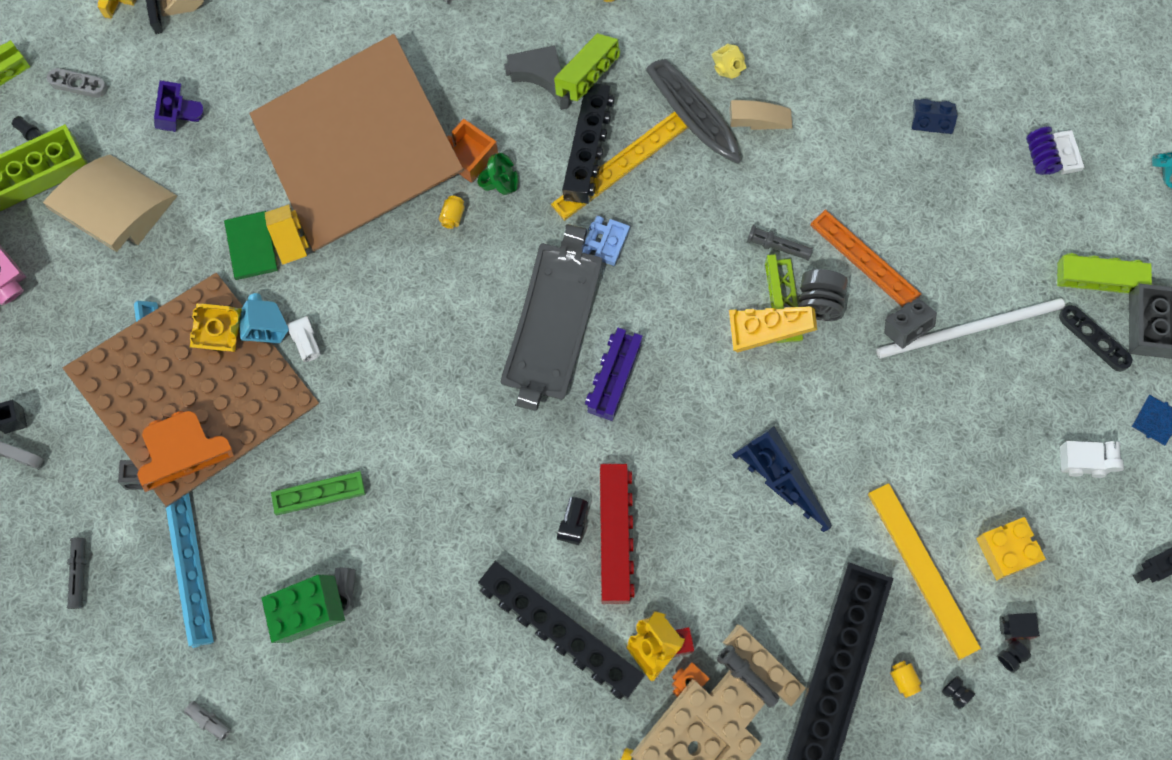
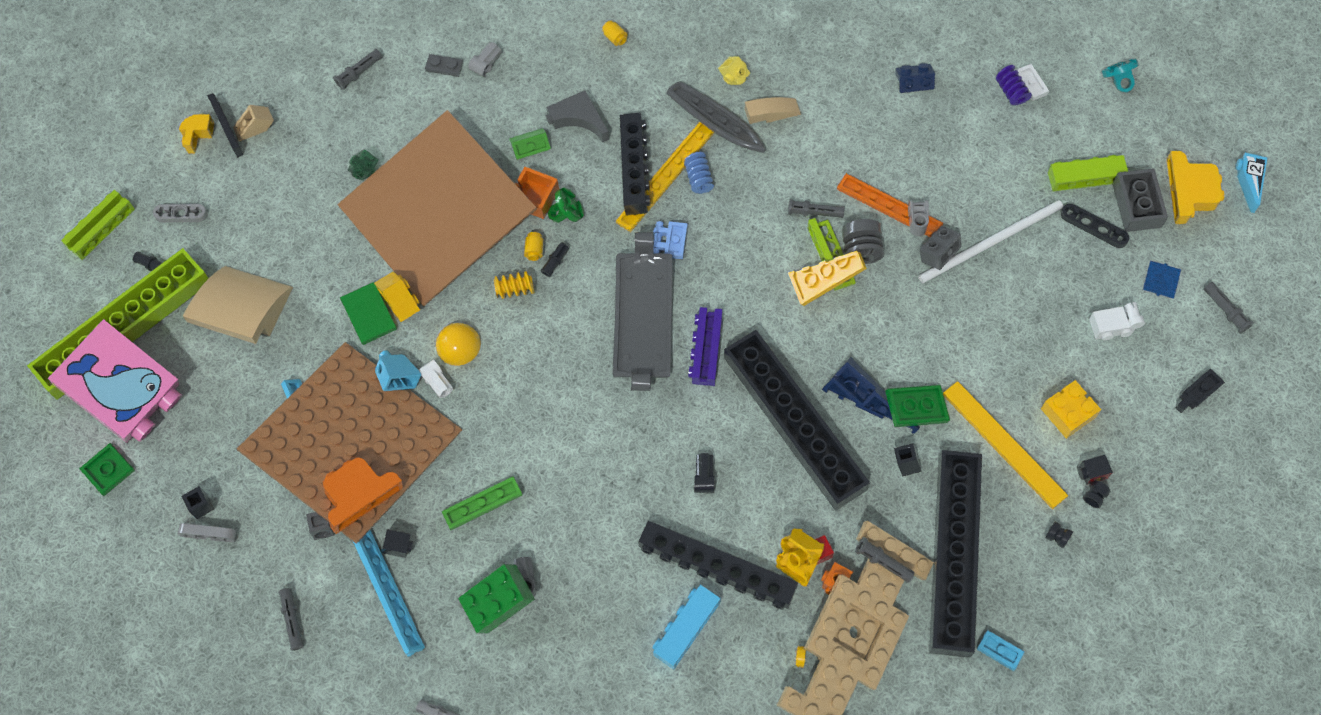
camera: 10 degrees left, 5 degrees down
(172, 106) = (271, 213): dark purple brick -> none
(212, 516) = (397, 543): none -> black brick
(215, 327) = (358, 385): yellow slope -> none
(287, 74) = (362, 165): none -> clear green brick
(340, 304) = (458, 344): none -> yellow piece
(418, 252) = (513, 285): none -> yellow piece
(471, 233) = (554, 259): none -> black axle
(478, 92) = (530, 143): none -> bright green panel
(507, 693) = (686, 627): none -> medium azure brick
(587, 66) = (617, 101): lime brick -> none
(615, 534) = (742, 476): red brick -> none
(657, 170) = (698, 173): none -> medium blue piece
(692, 485) = (796, 420): none -> black brick
(807, 562) = (907, 459): none -> black brick
(834, 501) = (917, 405): none -> green tile
(894, 277) = (918, 214): none -> light grey piece
(906, 679) = (1013, 534): yellow brick -> none

